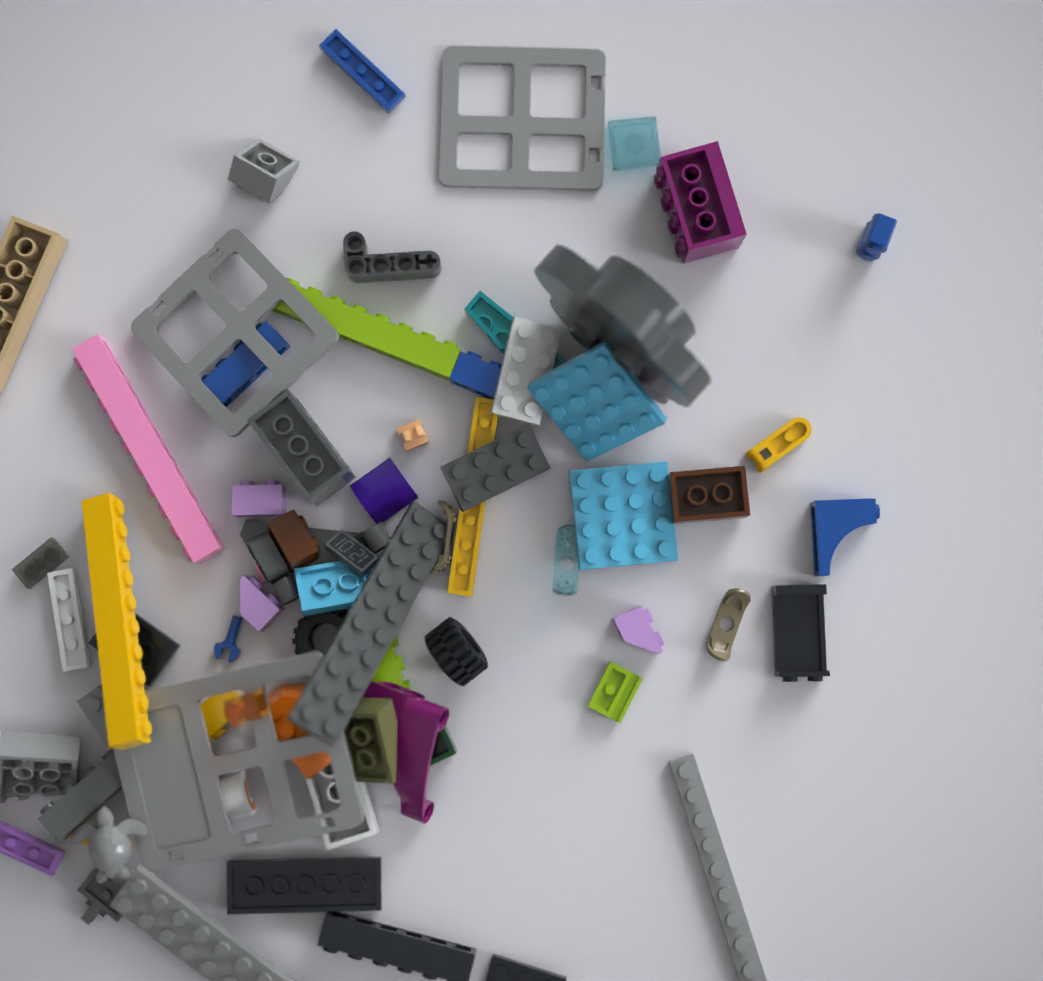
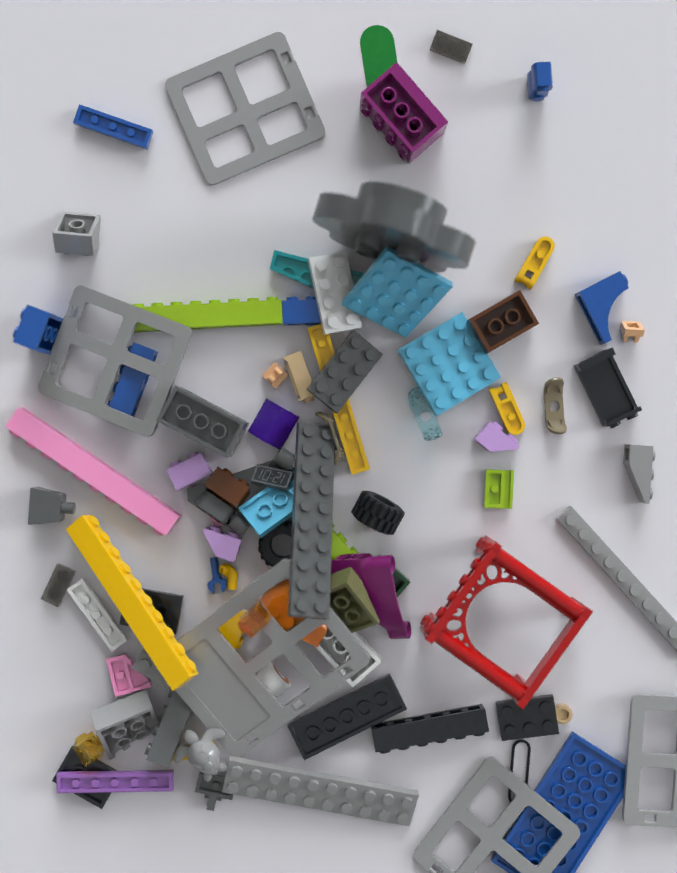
camera: 25 degrees left, 5 degrees up
(63, 711) = (123, 677): none -> bright pink wing
(75, 465) = (48, 506): none -> dark grey torso
(162, 255) = (37, 329): none -> blue brick
(248, 645) = (232, 575): none -> yellow arm
(393, 260) = (202, 256): dark grey beam -> none
(440, 448) = (299, 376): none -> tan window
(459, 827) = (435, 626): none -> red arch
(634, 143) = (334, 90): clear light blue tile -> none
(668, 602) = (507, 409): none -> yellow plate
(704, 121) = (377, 52): none -> green sticker
(791, 154) = (450, 46): none -> clear smoke plate
(796, 743) = (639, 468): none -> light grey slope
(860, 574) = (631, 328): none -> light nougat tile

